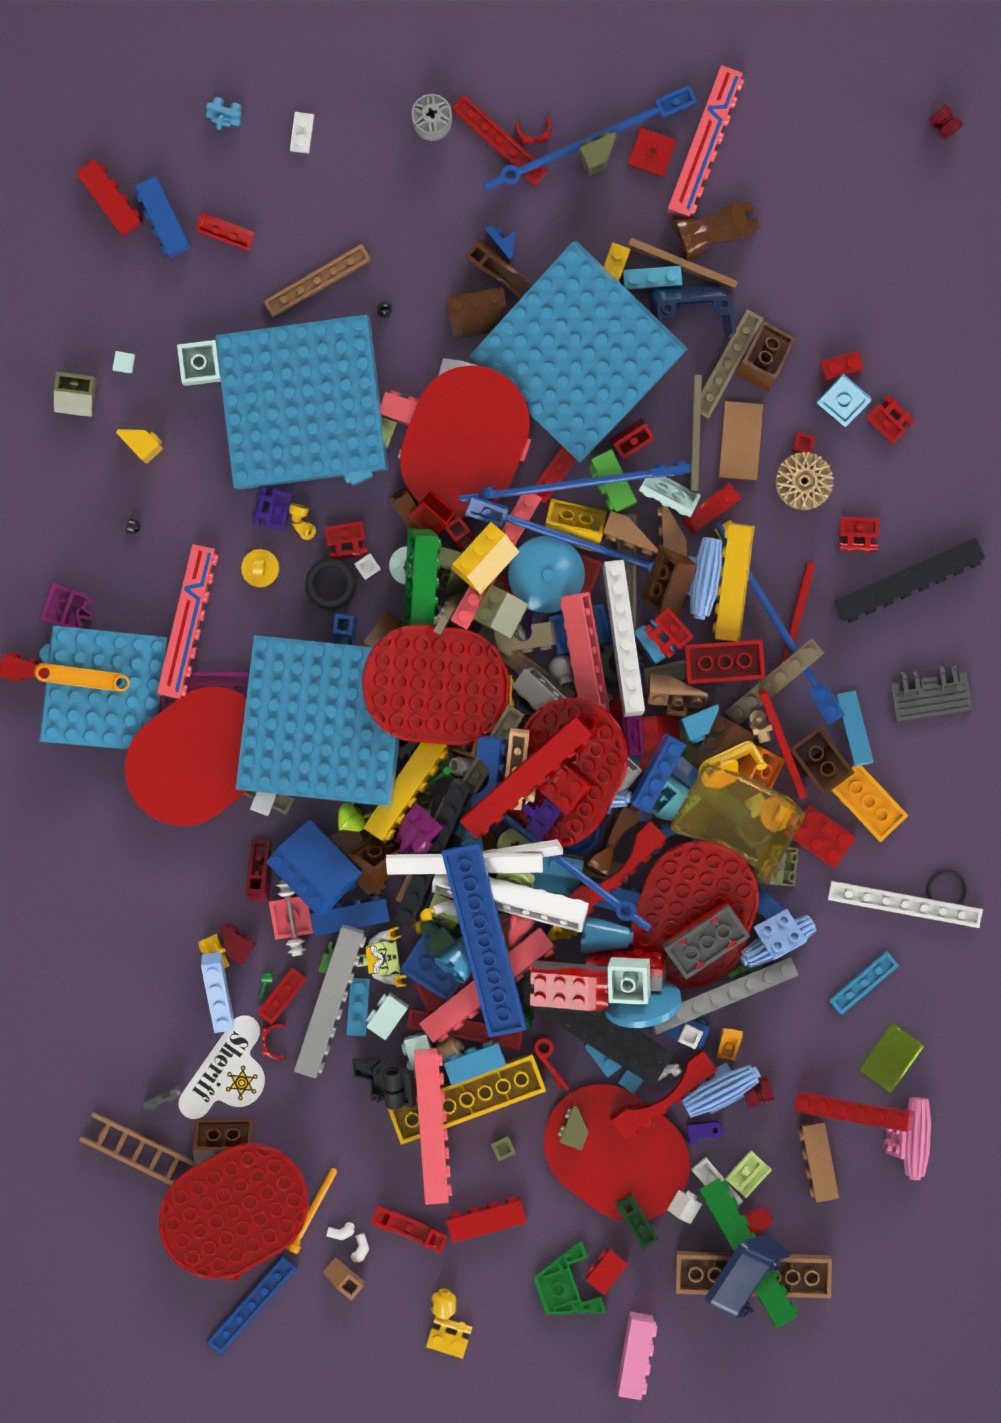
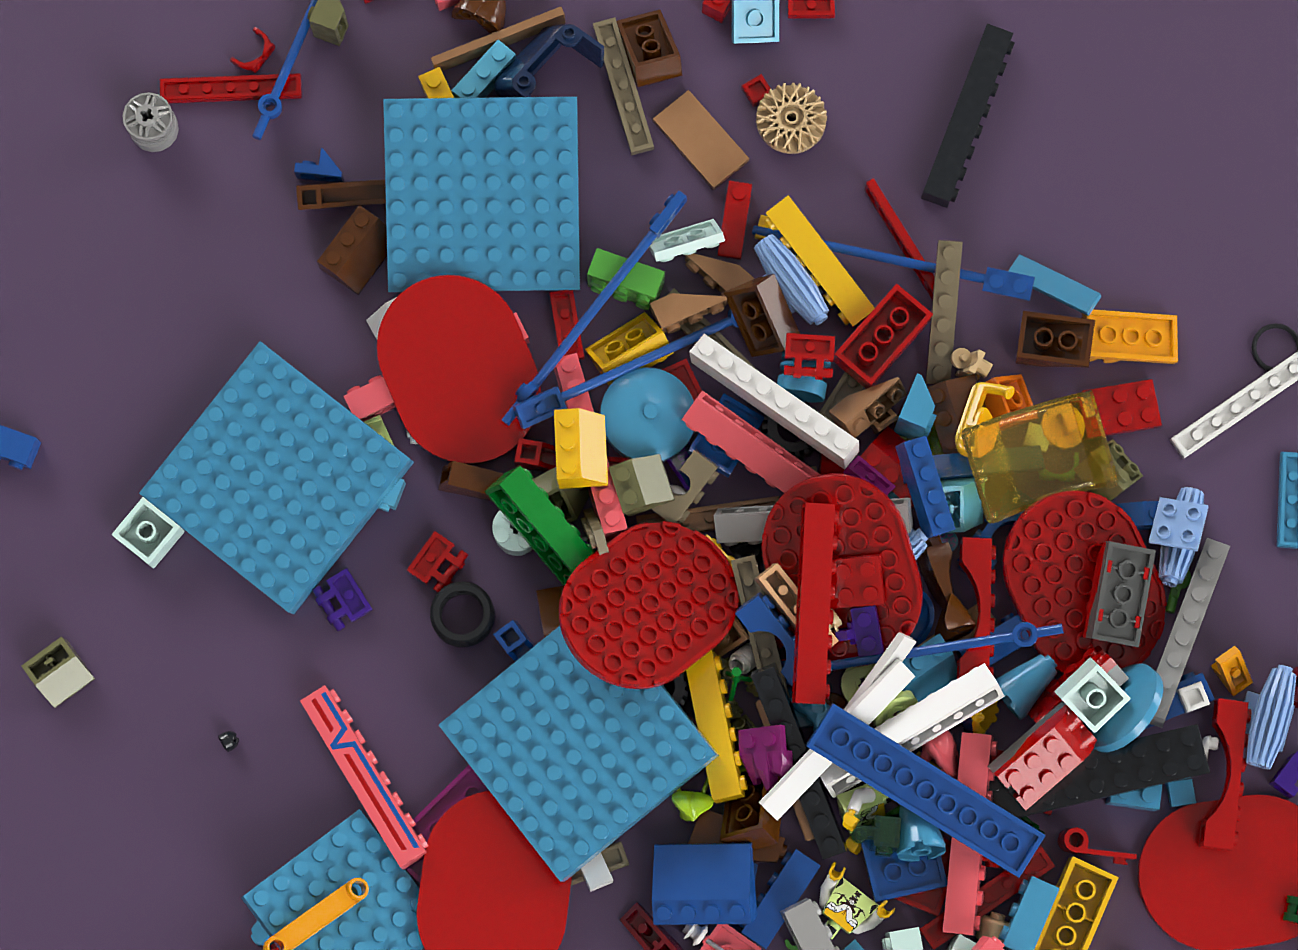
camera: 40 degrees left, 10 degrees down
(65, 607) = (235, 874): magenta plate -> none
(123, 362) = (77, 601): light aqua tile -> none
(142, 443) = (163, 655): yellow slope -> none
(225, 231) = (58, 396): red plate -> none
(260, 568) = (383, 664): yellow tile -> none
(302, 132) = (45, 246): white plate -> none
(304, 528) = (390, 588): yellow arm -> none
(317, 281) = (185, 361): medium nougat tile -> none
(367, 566) = (480, 566): white plate -> none
(384, 313) = (274, 332): black hinge -> none
(432, 513) = (492, 459): red piece -> none
(561, 670) = (747, 486): light grey piece -> none
(575, 1130) = (1179, 888): olive slope -> none
(632, 438) = (604, 225): red brick -> none
(696, 432) = (653, 164): dark tan tile -> none
(782, 743) = (1006, 358): red tile -> none
(859, 527) = (878, 114): red plate -> none
(931, 697) = (1088, 198): dark grey hinge -> none

